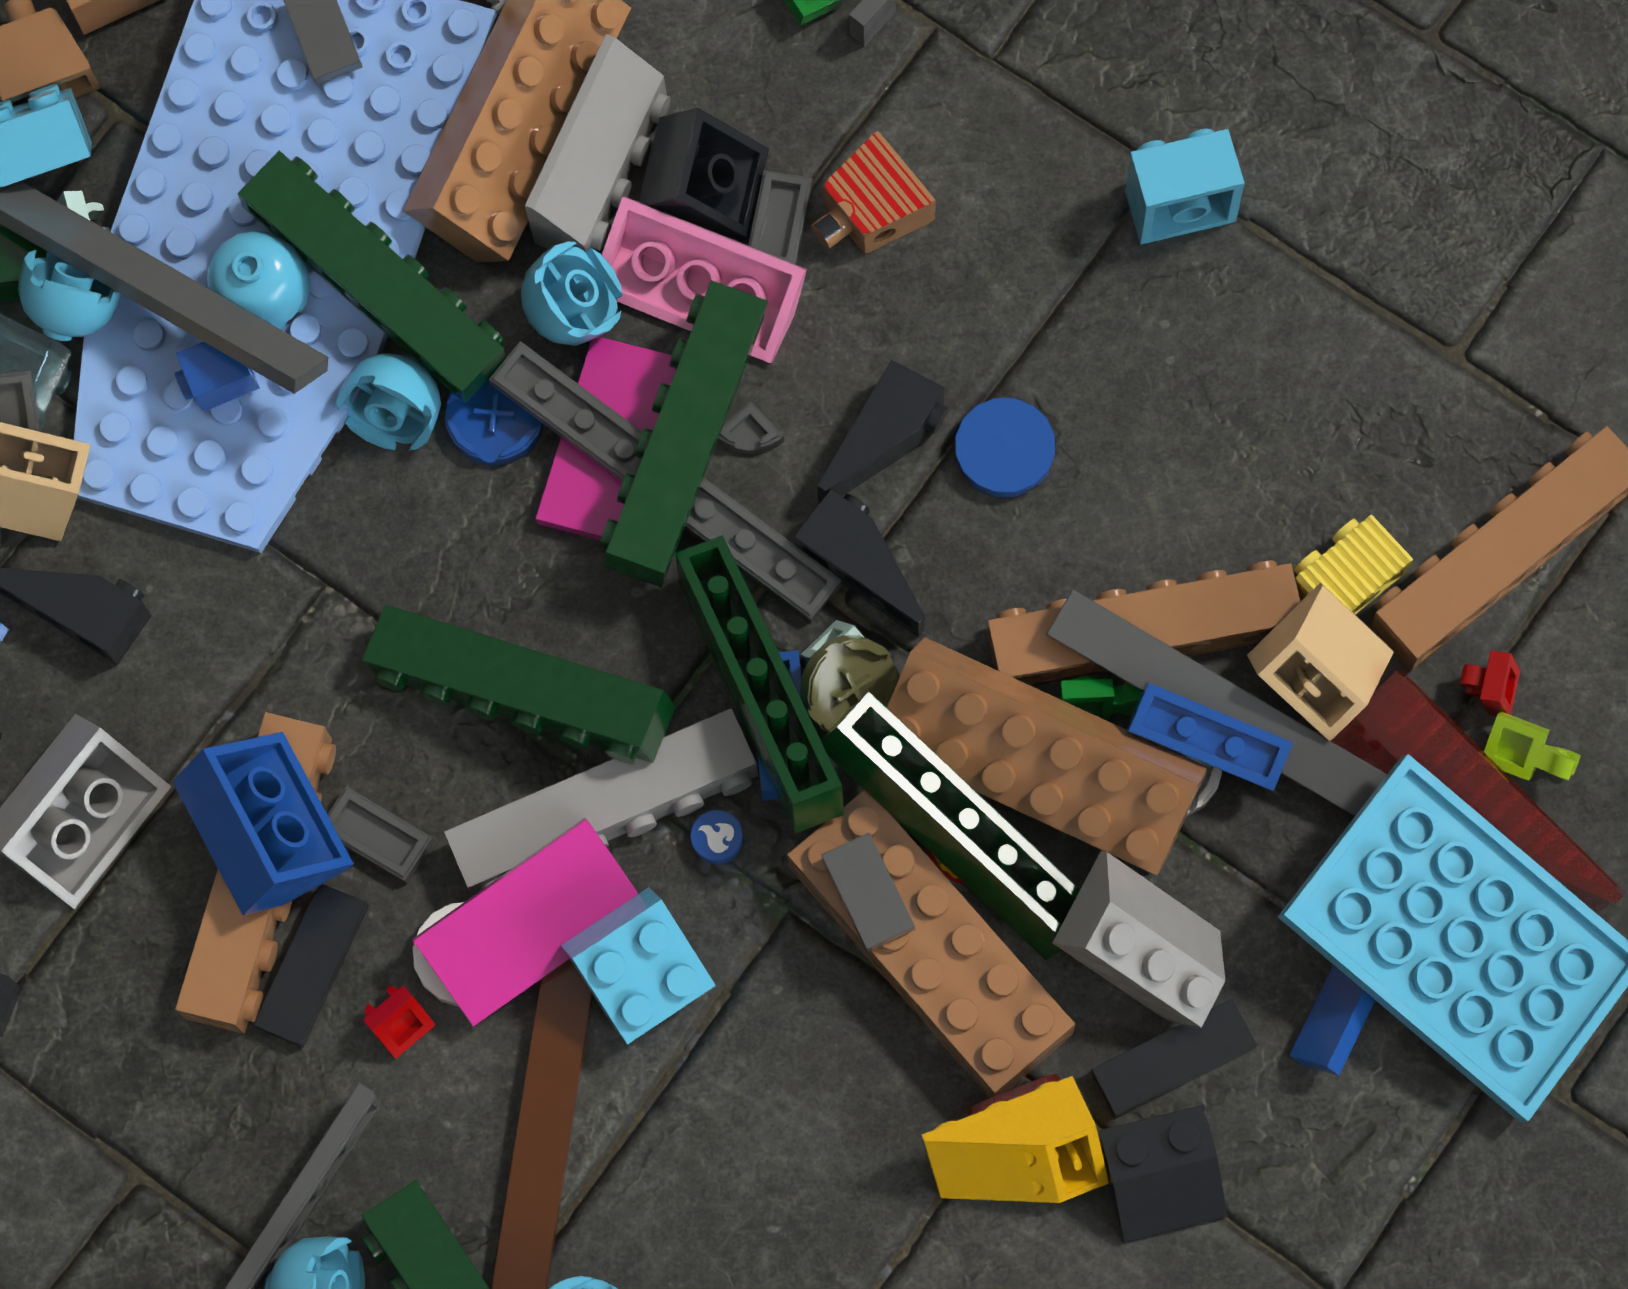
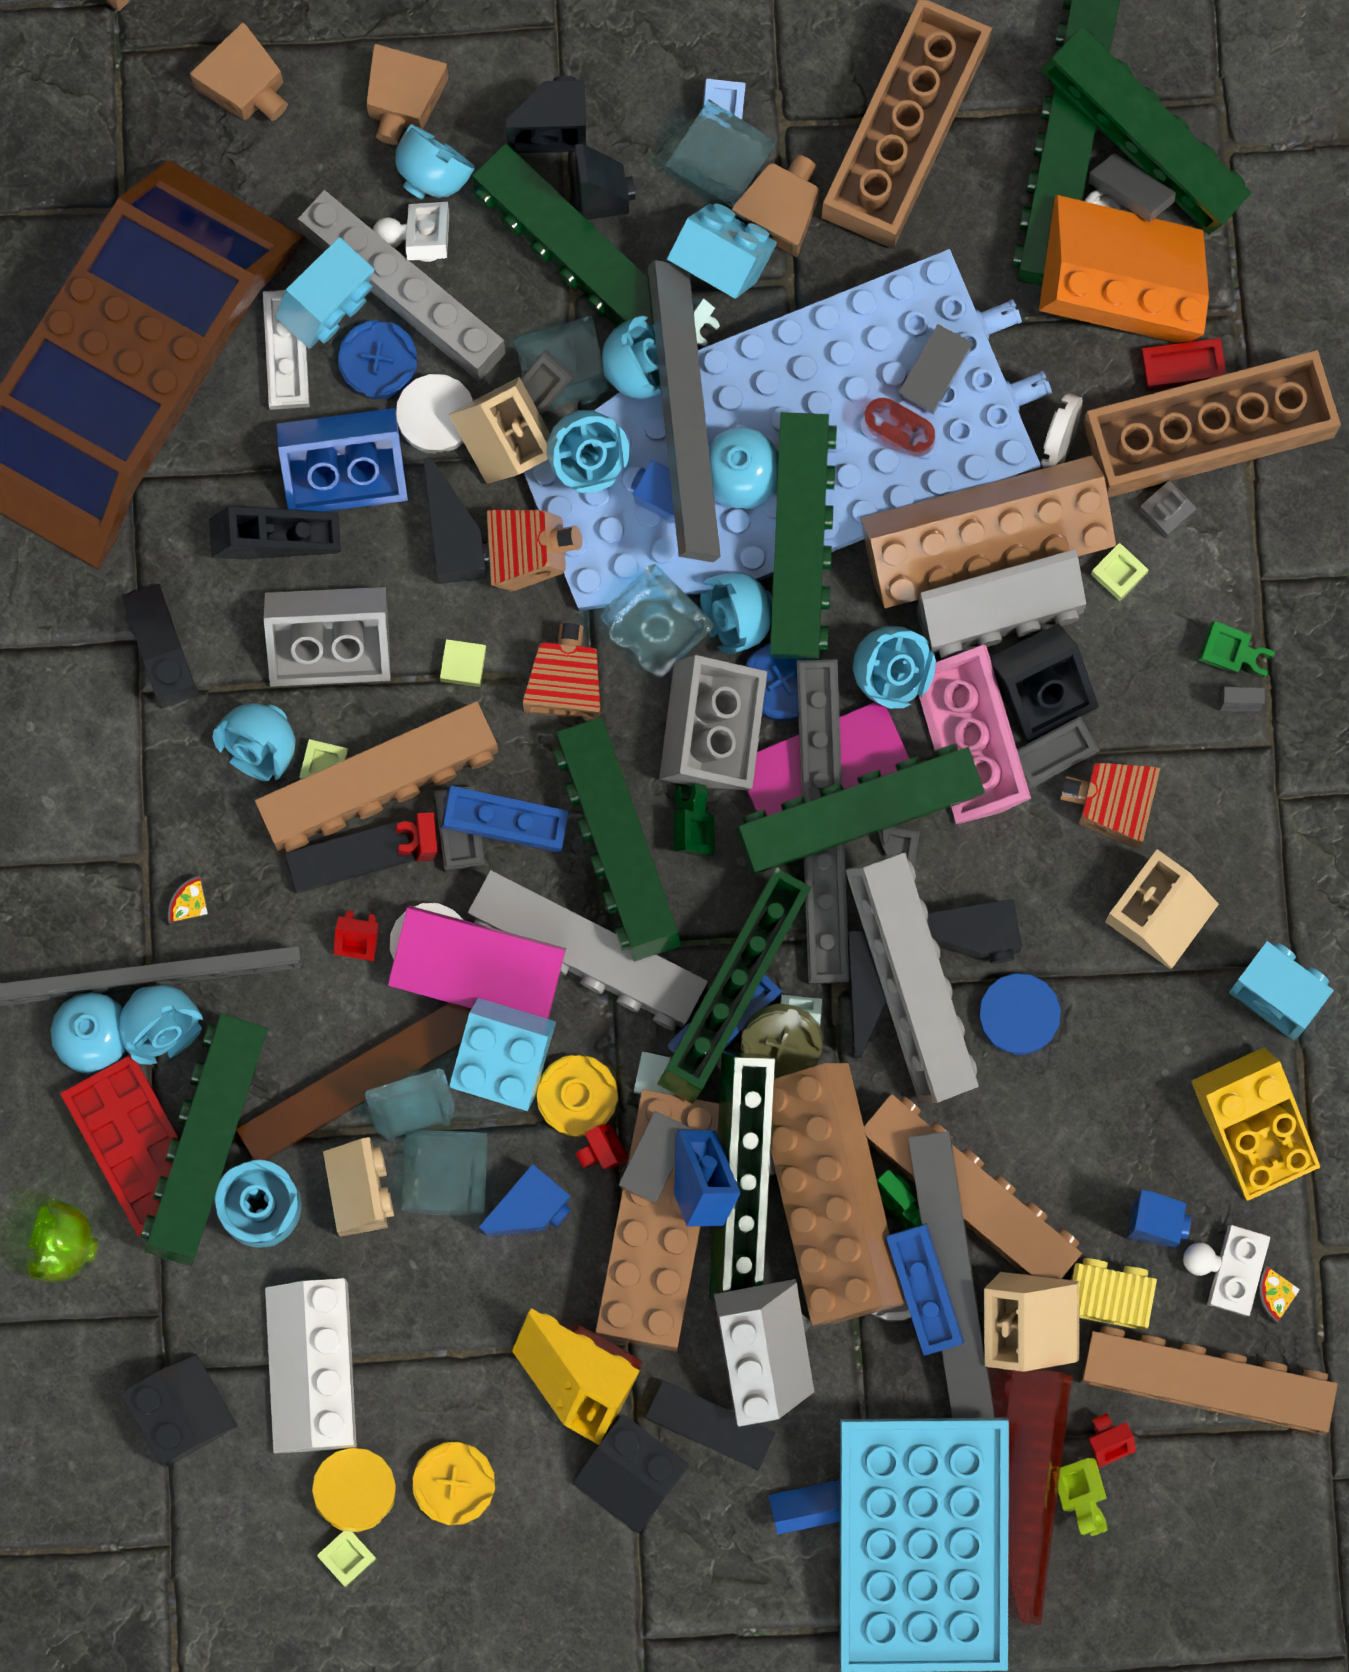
camera: 45 degrees right, 5 degrees up
(113, 407) = (587, 451): none -> medium azure cylinder
(117, 962) = (257, 739): none -> medium azure cylinder
(156, 544) = (528, 547): none -> medium nougat torso
(187, 913) = (321, 756): none -> yellowish green tile
(215, 702) = (463, 663): none -> yellowish green tile
(220, 1163) = (188, 902): none -> tile
(261, 821) = (406, 757): blue slope -> none
(316, 613) = (564, 678): none -> torso
(334, 482) = (655, 621): none -> clear light blue slope
(347, 103) = (895, 435): none -> clear red beam
(361, 879) = (423, 837): none -> red tile
(404, 780) = (504, 819): none -> blue plate
(481, 508) = (713, 724): none -> light grey slope
(564, 606) = (692, 825): none -> dark green plate
(611, 1098) = (411, 1104): none -> clear light blue slope
(651, 1219) = (356, 1188): none -> tan slope
(656, 31) = (1119, 572): none -> yellowish green tile
(707, 1121) = (445, 1172): none -> clear light blue slope
(717, 837) = (624, 1036): blue tile -> none
(737, 929) = (576, 1095): none -> yellow tile
(776, 837) = (649, 1073): none -> light aqua tile
(811, 1062) = (528, 1207): none -> blue slope
(812, 943) = (603, 1148): none -> red tile
(891, 509) = (912, 978): none -> light grey brick
(930, 859) = (703, 1179): none -> blue slope
(1012, 236) = (1162, 909): none -> tan slope
(1288, 310) = (1256, 1122): none -> yellow slope
(1311, 471) = (1158, 1220): none -> blue slope
(1414, 439) = (1235, 1270): none -> white plate
(1469, 422) = (1275, 1293): none -> tile

